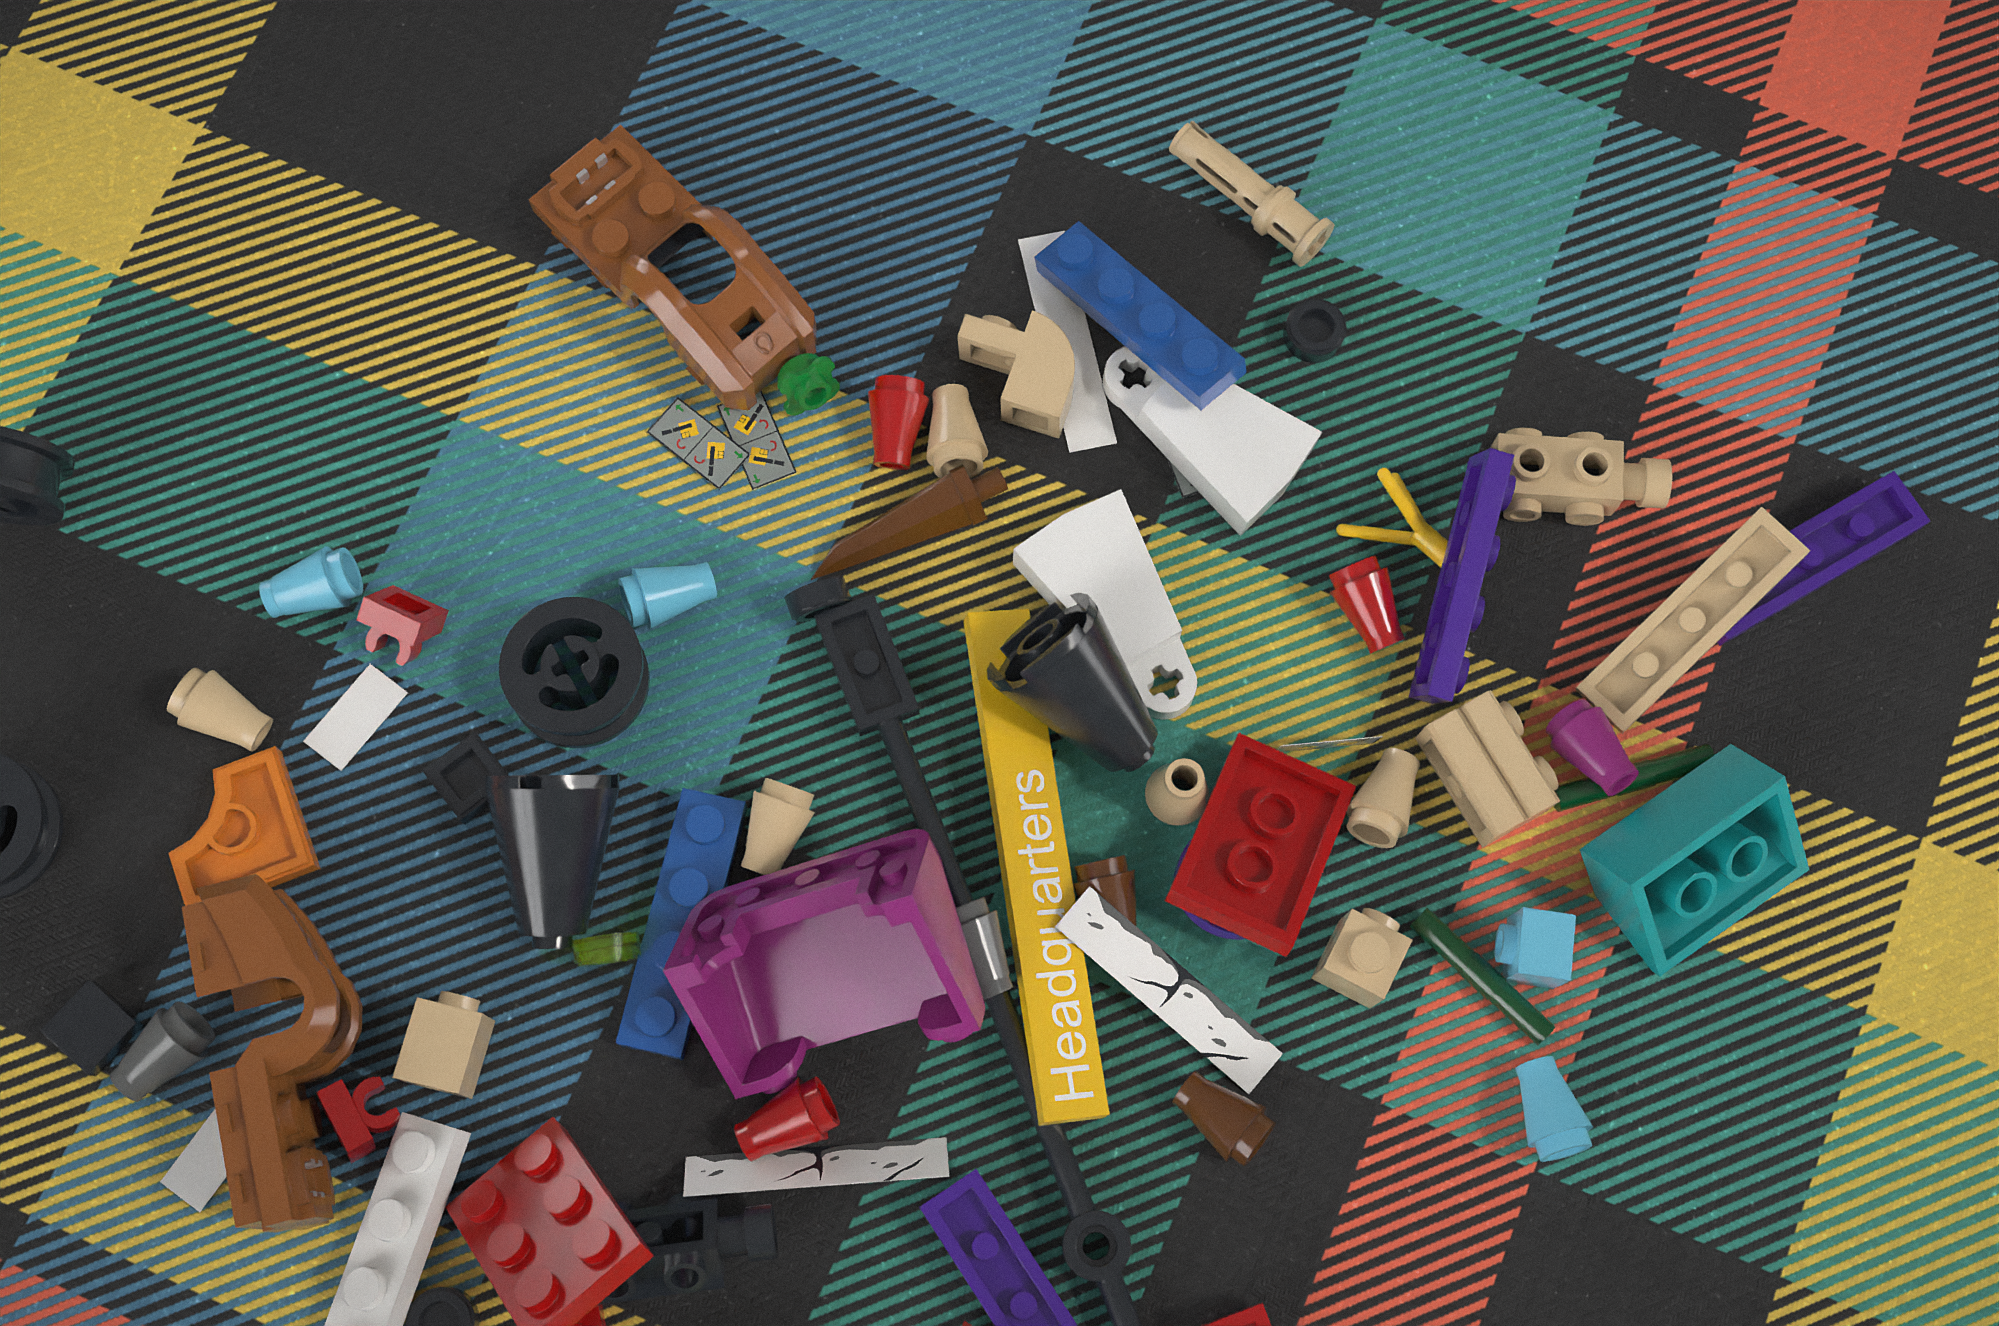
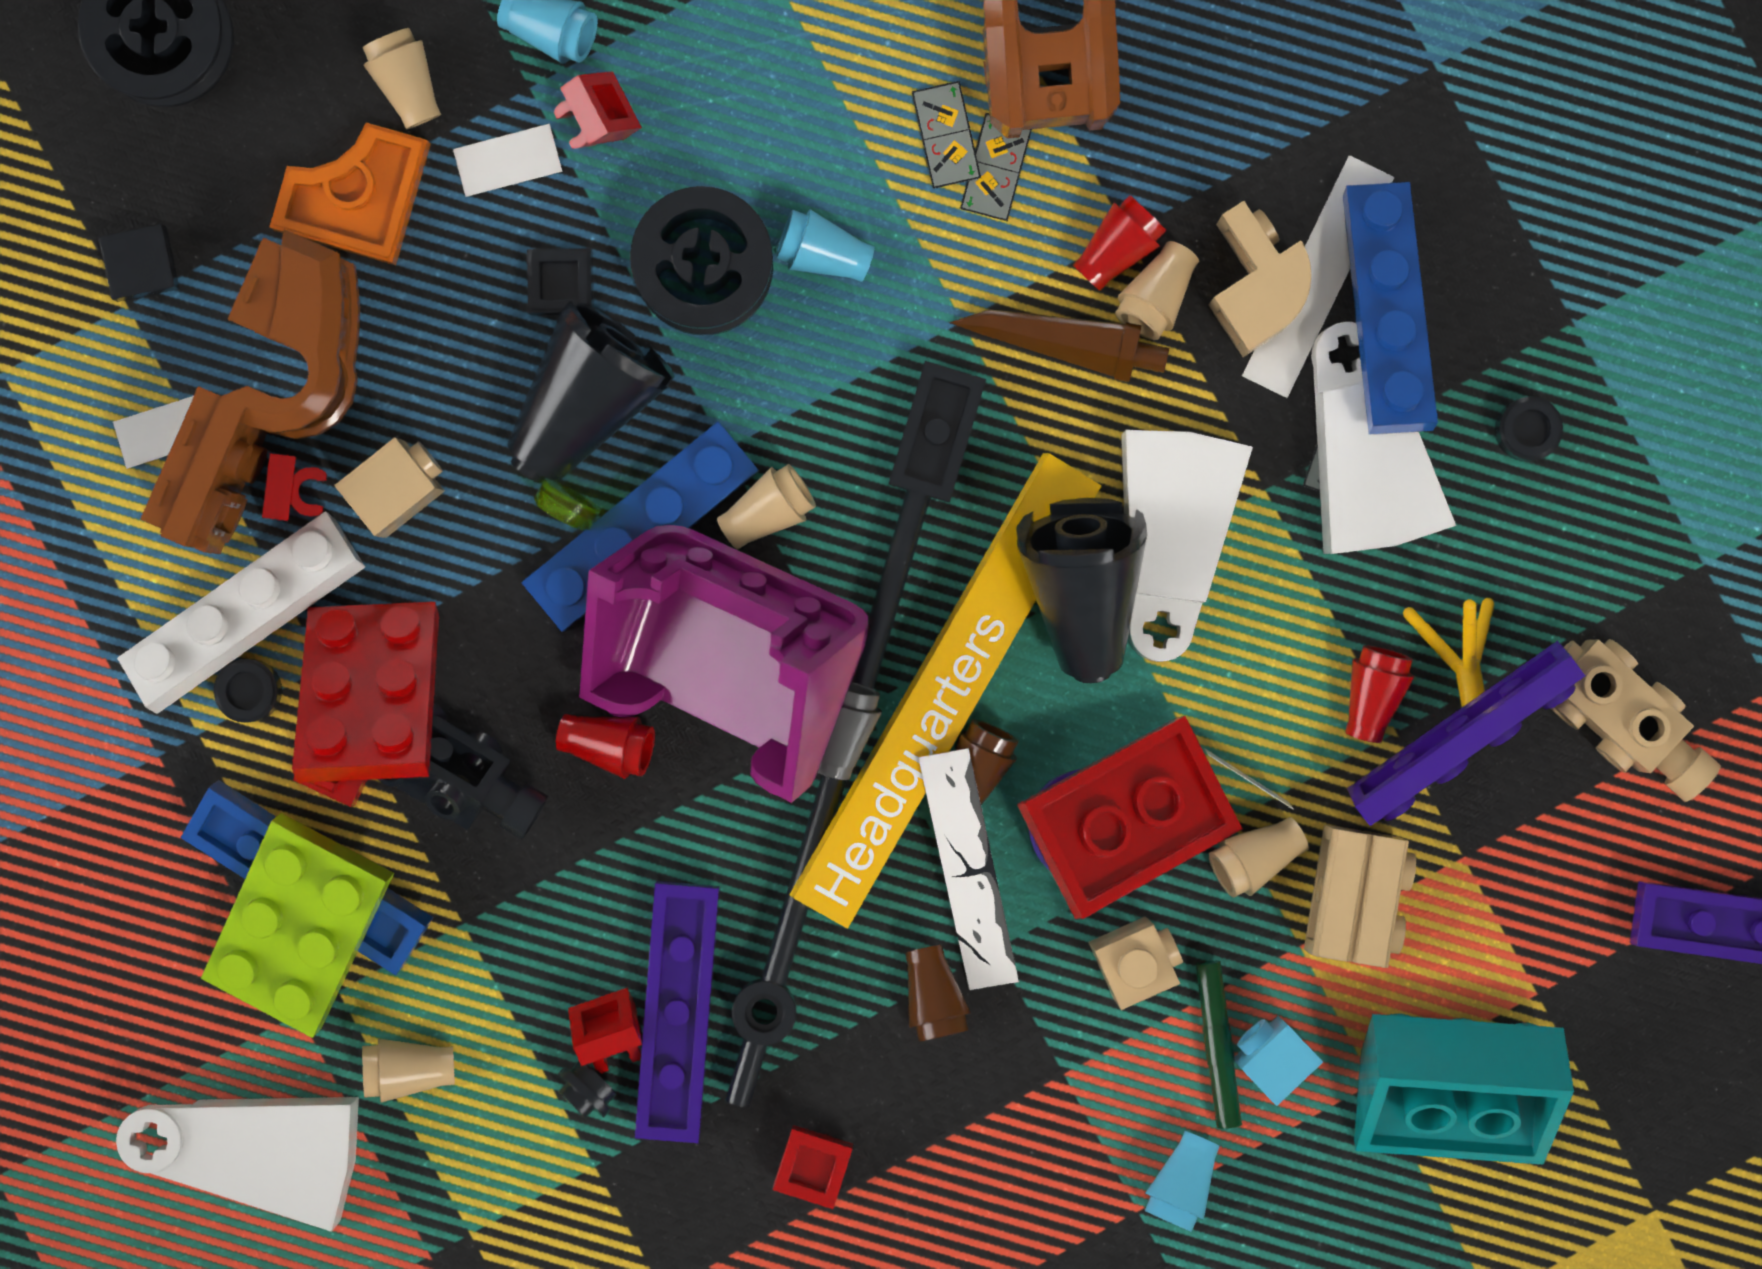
camera: 45 degrees right, 15 degrees up
(163, 1050) = (180, 324): dark grey cone -> none
(807, 382) = (1071, 154): green plate -> none
(817, 598) = (939, 348): black tile -> none
(817, 1167) = (604, 793): white sticker -> none
(1169, 802) = (1082, 720): tan cone -> none
(1271, 208) = (1580, 294): tan pin -> none
(1590, 744) = (1453, 943): magenta cone -> none
(1650, 773) = (1467, 988): dark green piece -> none
(1692, 619) = (1619, 911): tan plate -> none

